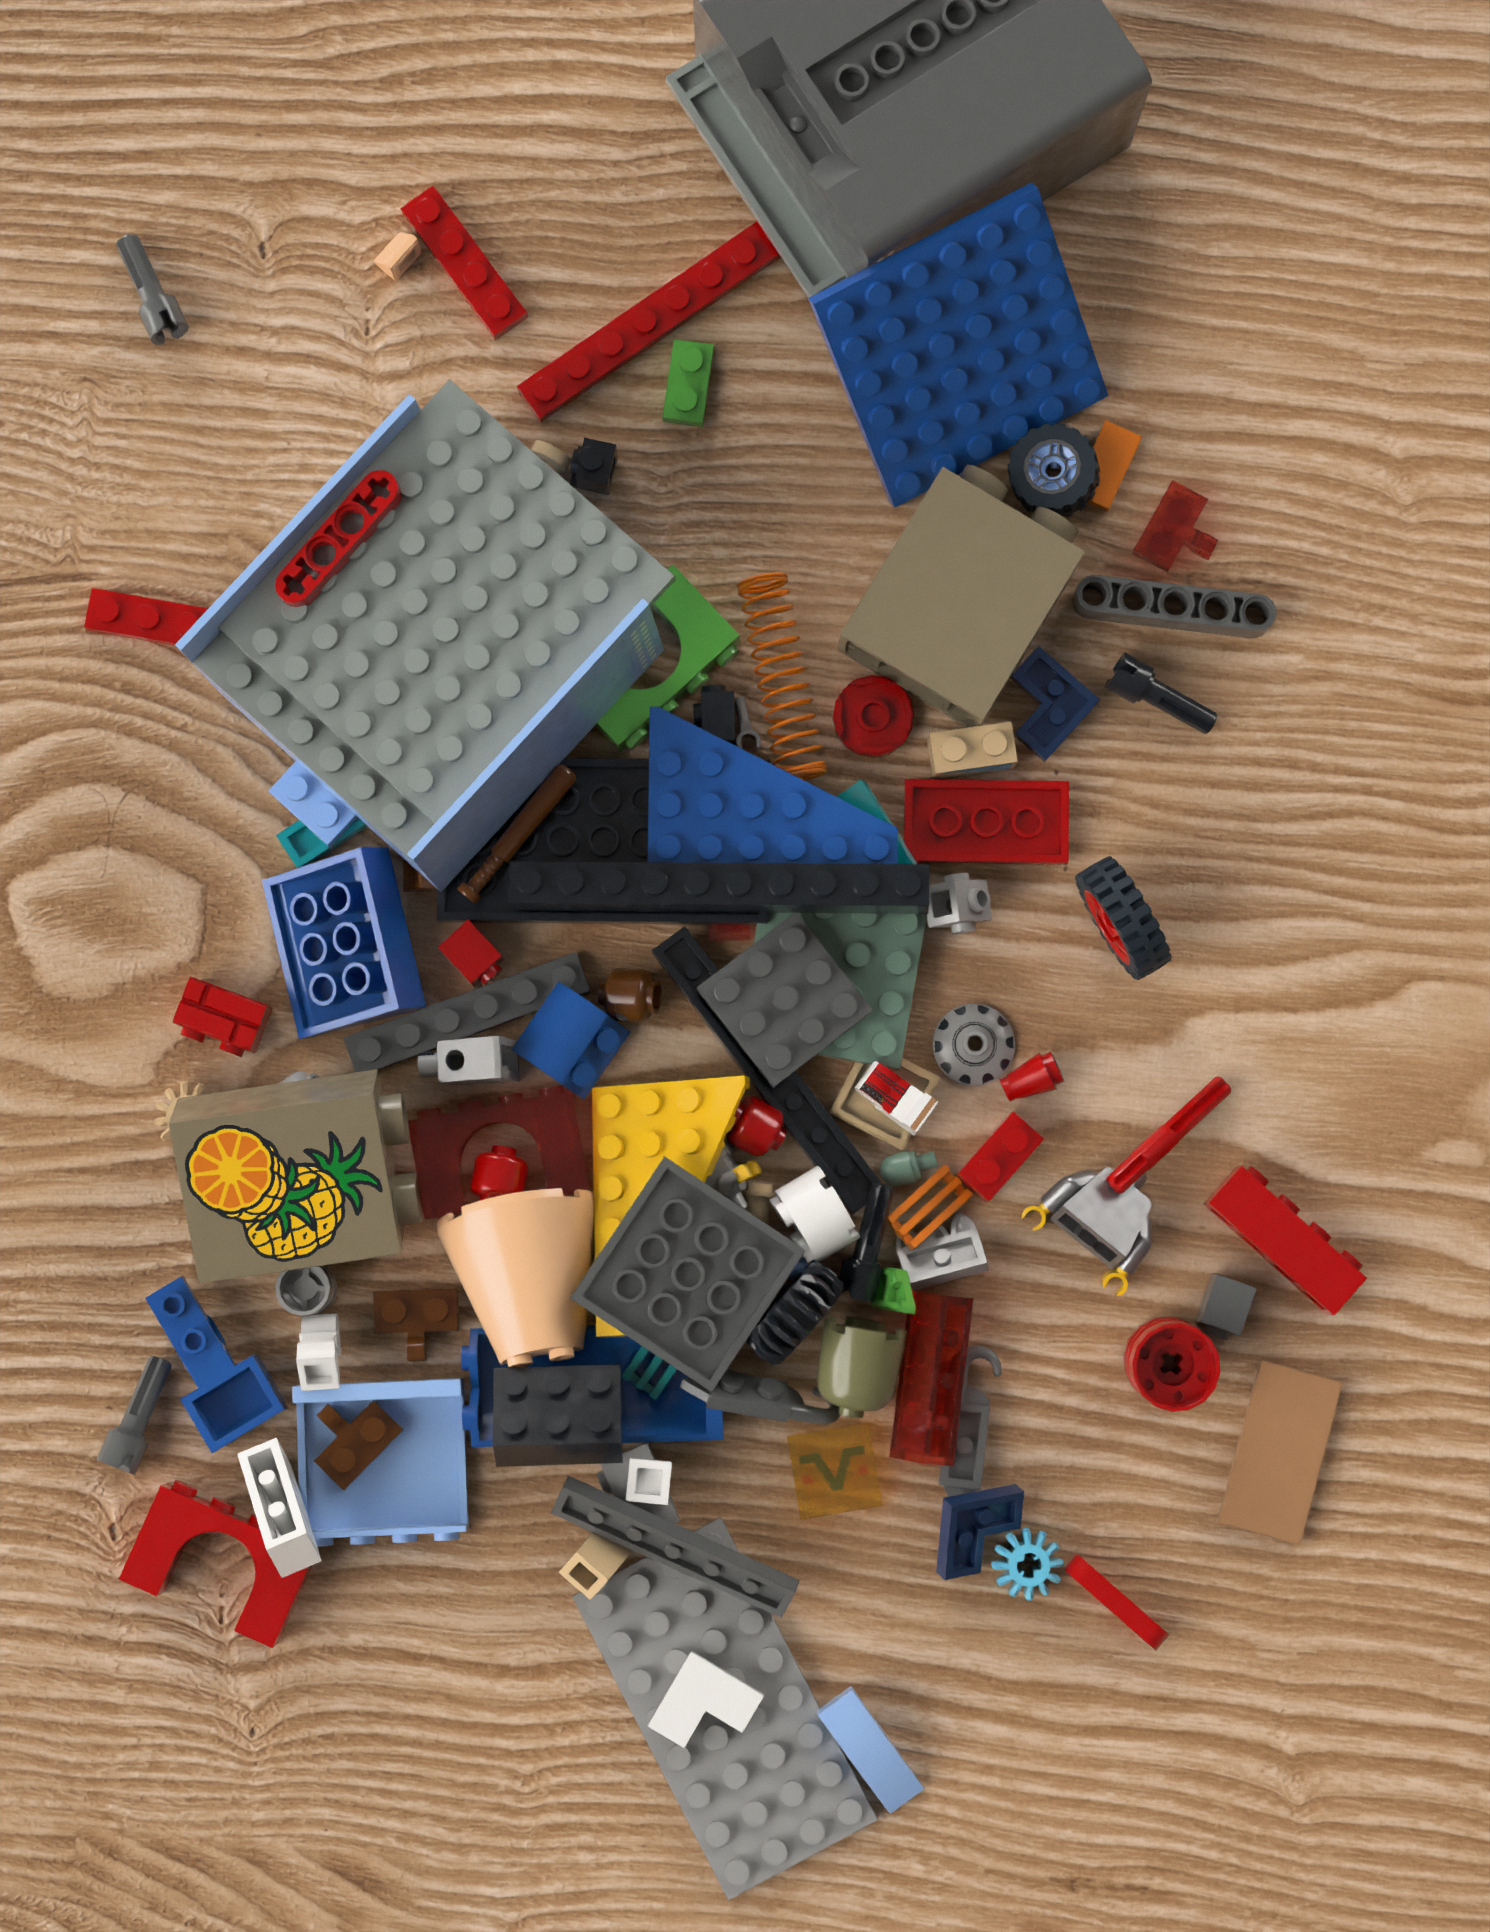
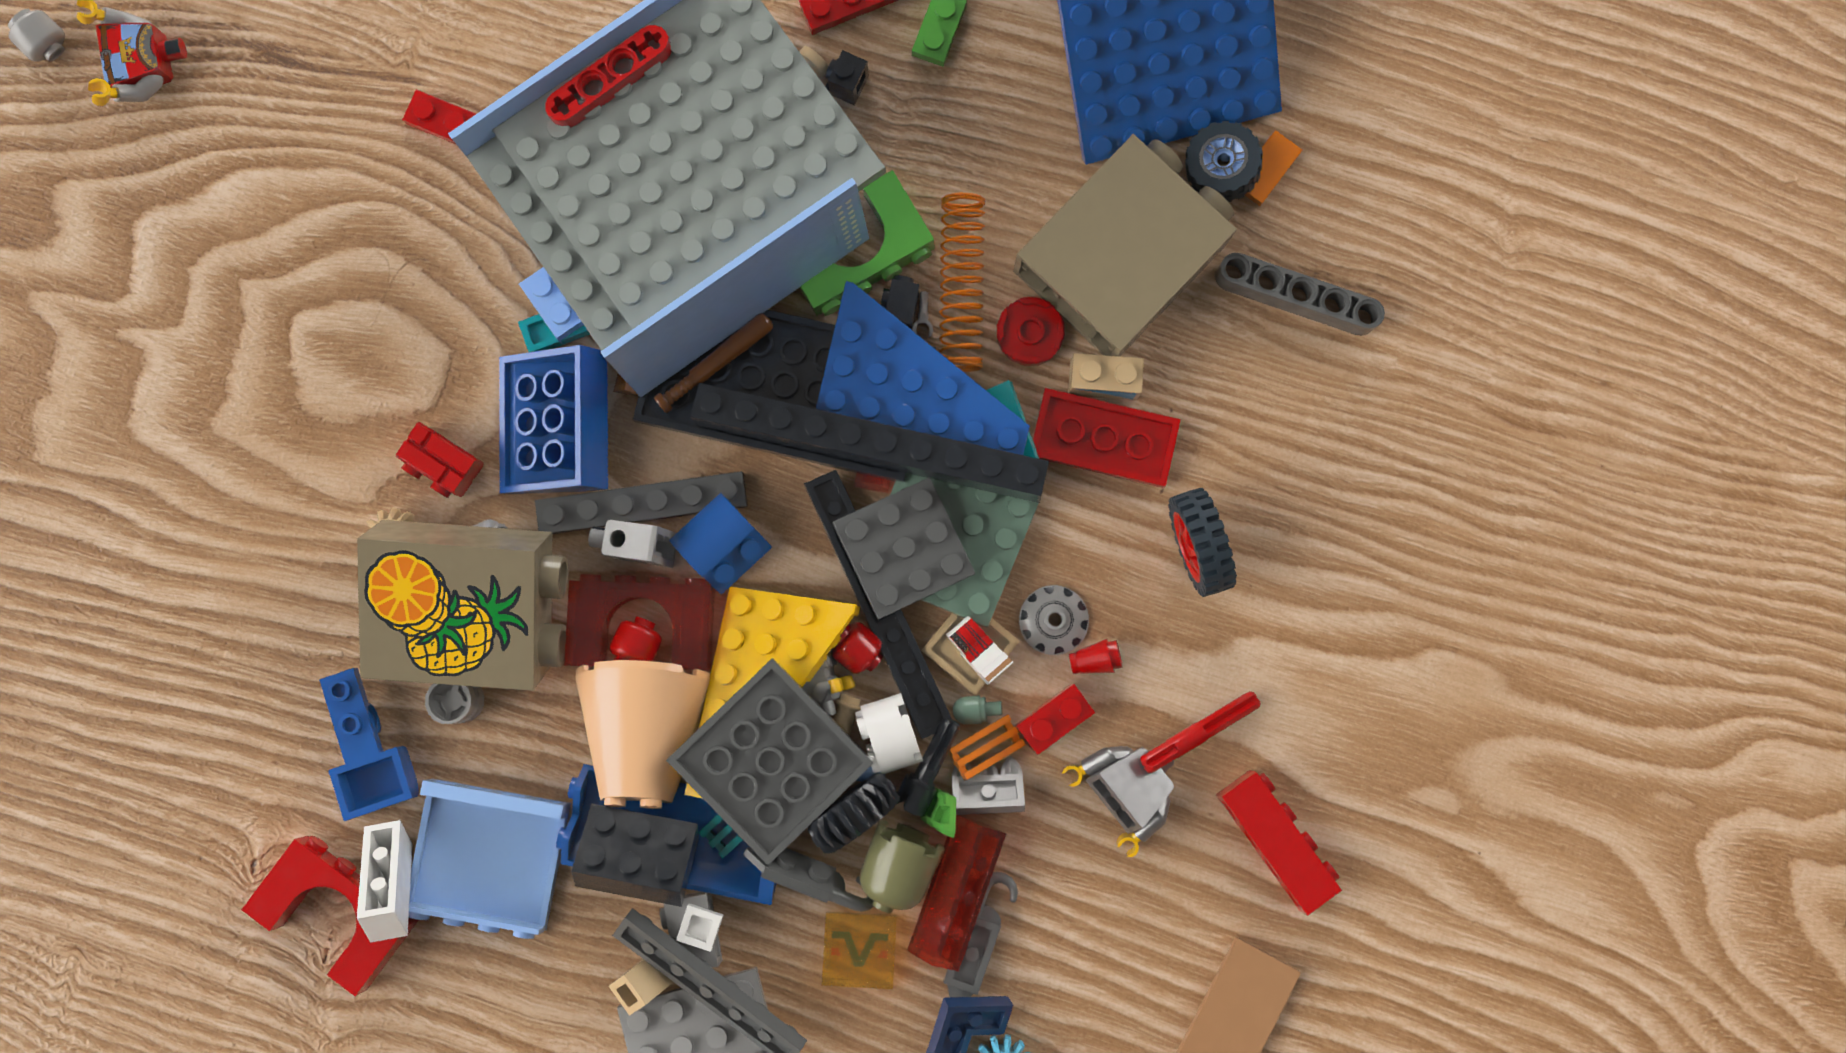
camera: 15 degrees right, 0 degrees up
(124, 1444) = (278, 796): dark grey piece -> none
(318, 1352) = (447, 758): white leg -> none
(356, 1442) = (467, 838): reddish brown plate -> none
(416, 1314) = (542, 741): reddish brown plate -> none
(472, 954) = (655, 454): red brick -> none
(630, 995) = (778, 516): reddish brown head -> none
(959, 903) = (1067, 500): light grey brick -> none
(1061, 700) = (1188, 354): dark blue plate -> none
(1136, 682) = (1254, 349): black piece -> none
(1173, 528) = (1313, 229): clear red plate -> none
(1195, 1369) = (1166, 946): red wheel -> none
(1225, 1306) = (1216, 886): dark grey brick -> none

